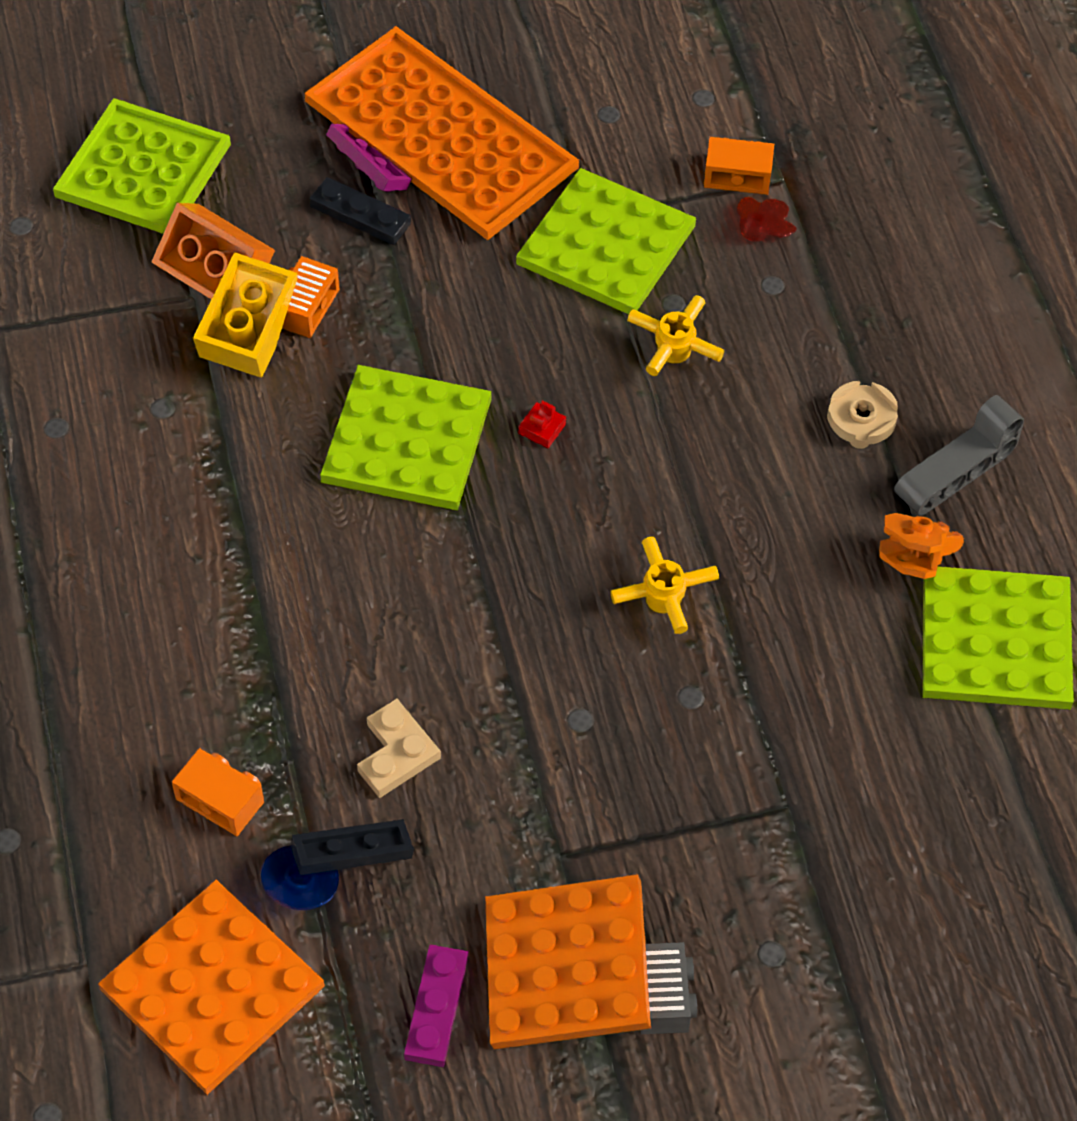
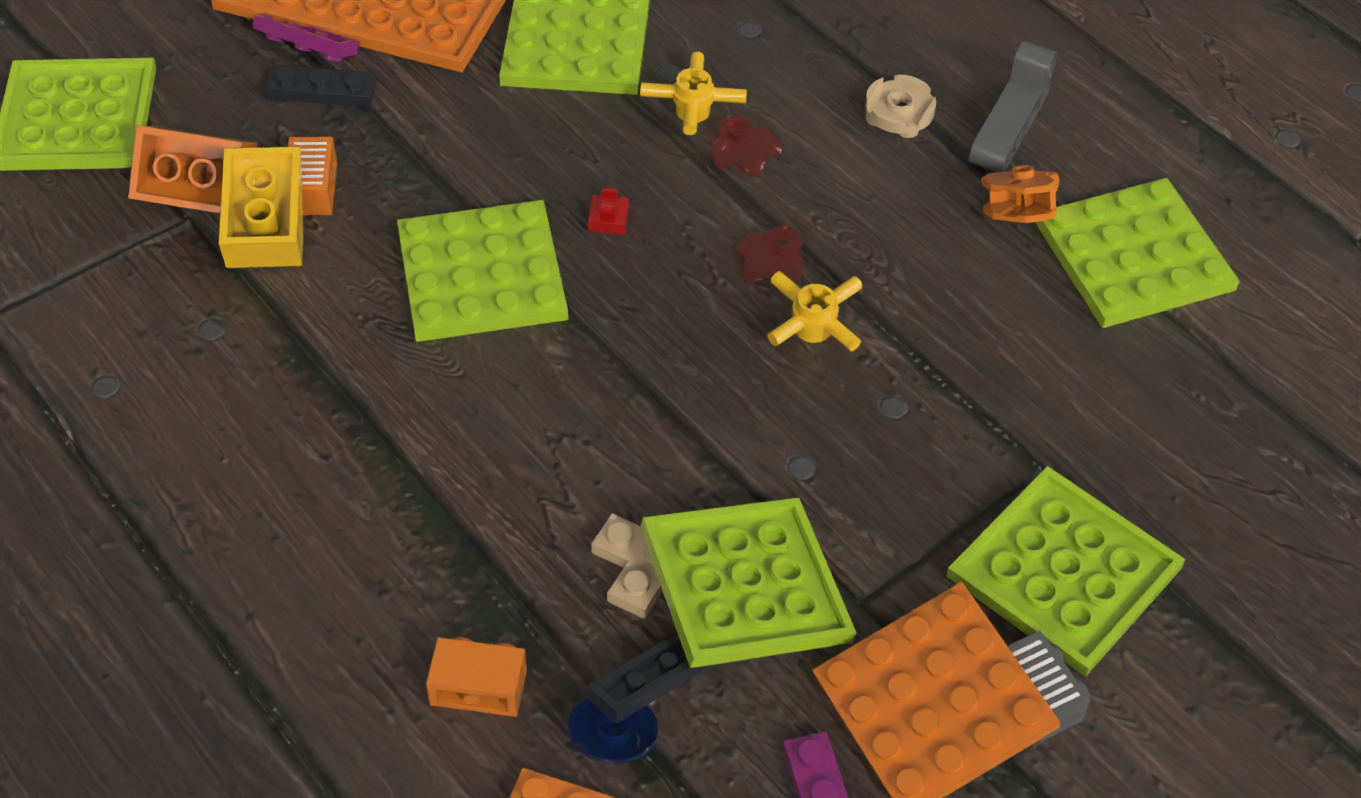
camera: 25 degrees left, 5 degrees down
(470, 801) = (746, 582): none -> lime plate
(658, 520) = (768, 257): none -> clear red plate
(697, 406) = (744, 148): none -> clear red plate
(748, 900) = (1066, 569): none -> lime plate

